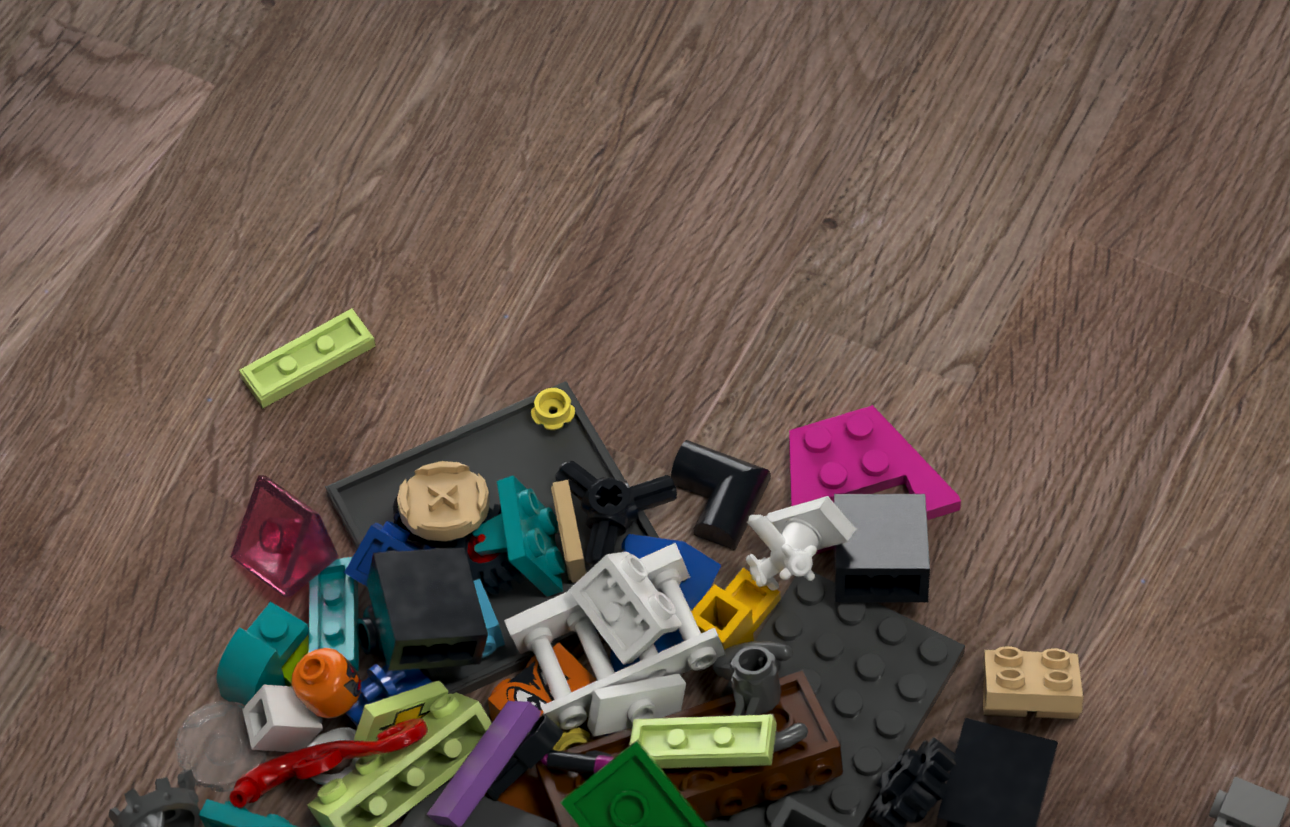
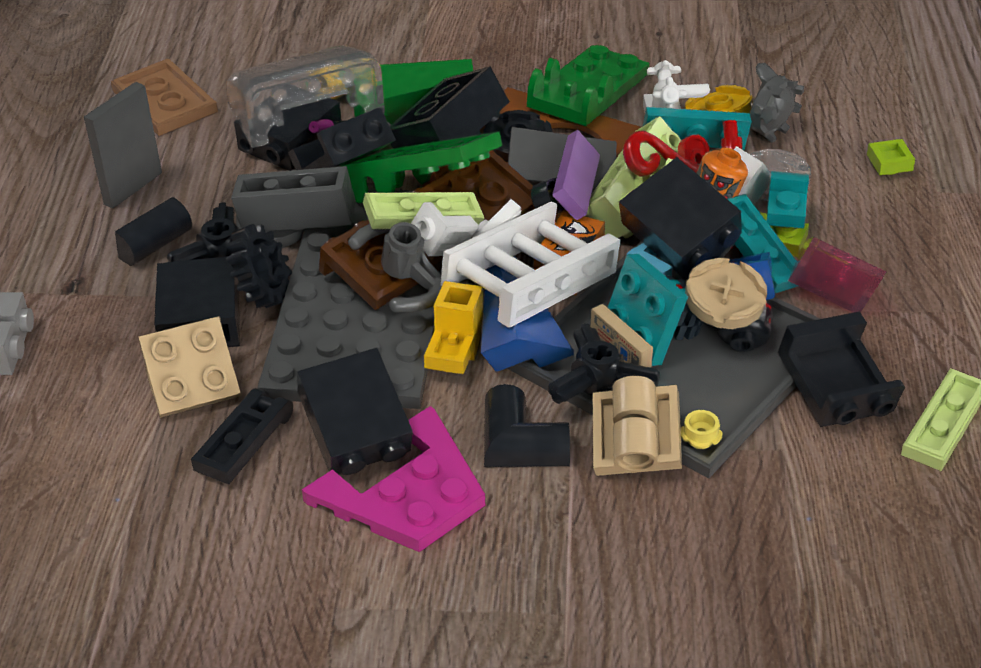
camera: 155 degrees right, 15 degrees down
(74, 707) = (890, 157): none -> lime plate
(377, 419) = (837, 370): none -> black panel
(575, 762) = (501, 191): black piece -> none
(616, 425) = (636, 427): none -> tan plate
(625, 605) = (522, 248): white bracket -> none
(695, 687) = (442, 231): none -> white bracket
(795, 537) = (414, 365): white piece -> none
(998, 591) = (241, 435): none -> black plate

